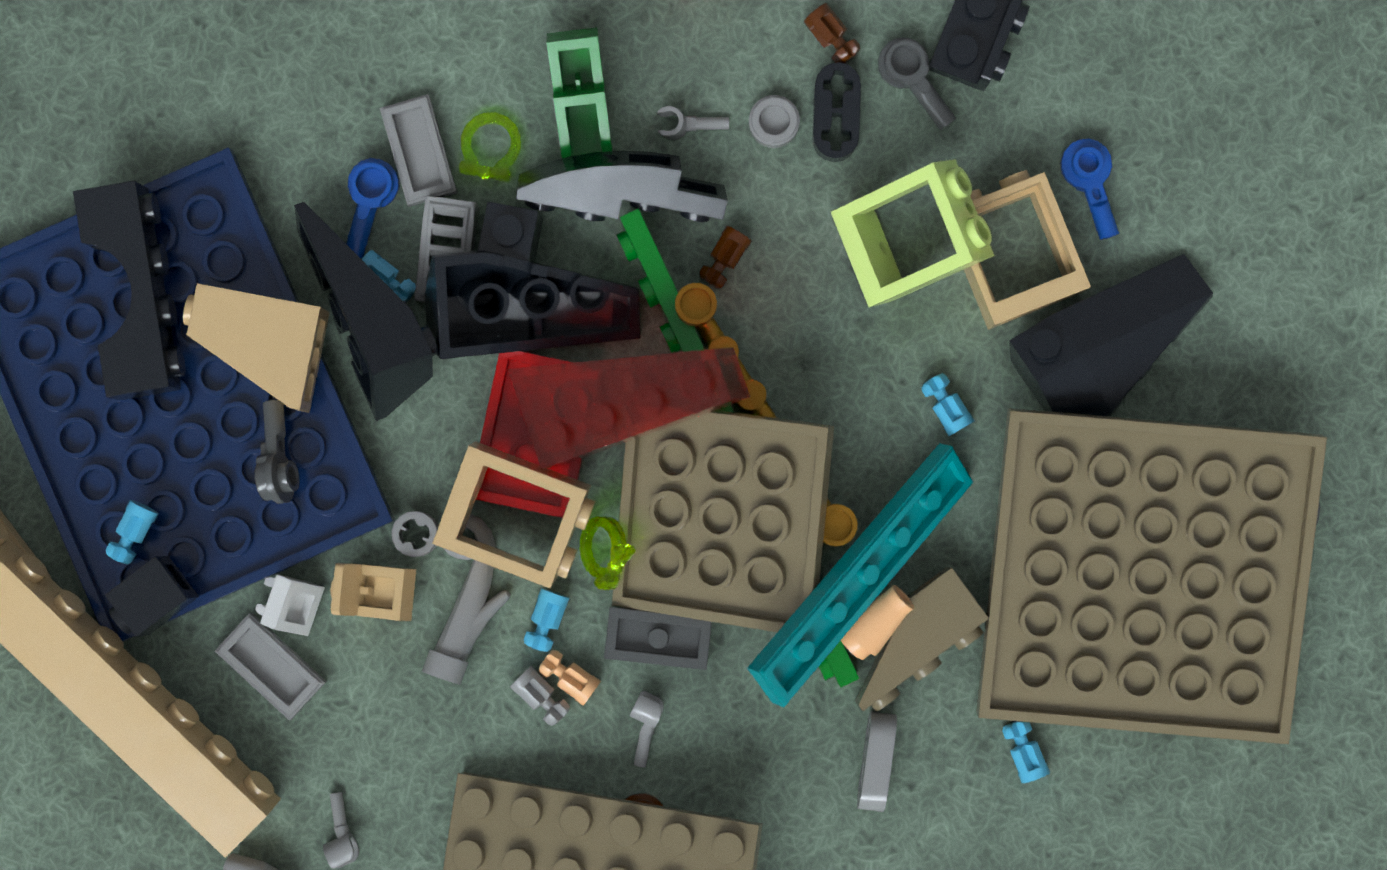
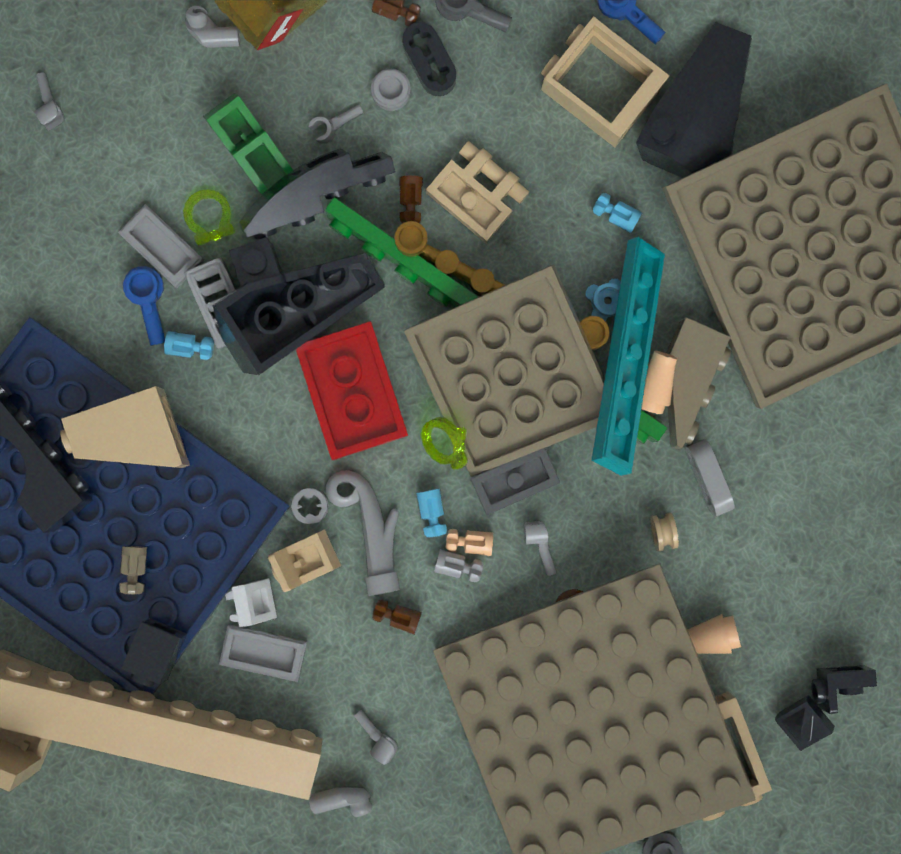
camera: 45 degrees left, 0 degrees up
(132, 529) = (114, 612): medium azure piece -> none
(182, 487) = (133, 564): none -> dark tan piece
(275, 474) = (190, 519): dark grey plate -> none
(385, 339) = (210, 381): black wedge -> none
(443, 715) = (400, 616): none -> reddish brown piece
(464, 494) = (328, 457): tan window -> none
(608, 402) = (392, 335): clear red wedge -> none
(789, 297) = (469, 200): none -> tan plate
(790, 791) = (664, 531): none -> tan bush
(870, 250) = (504, 136): yellowish green window -> none
(871, 483) = (597, 294): none -> medium azure plate
(1027, 753) = (806, 415): medium azure piece -> none

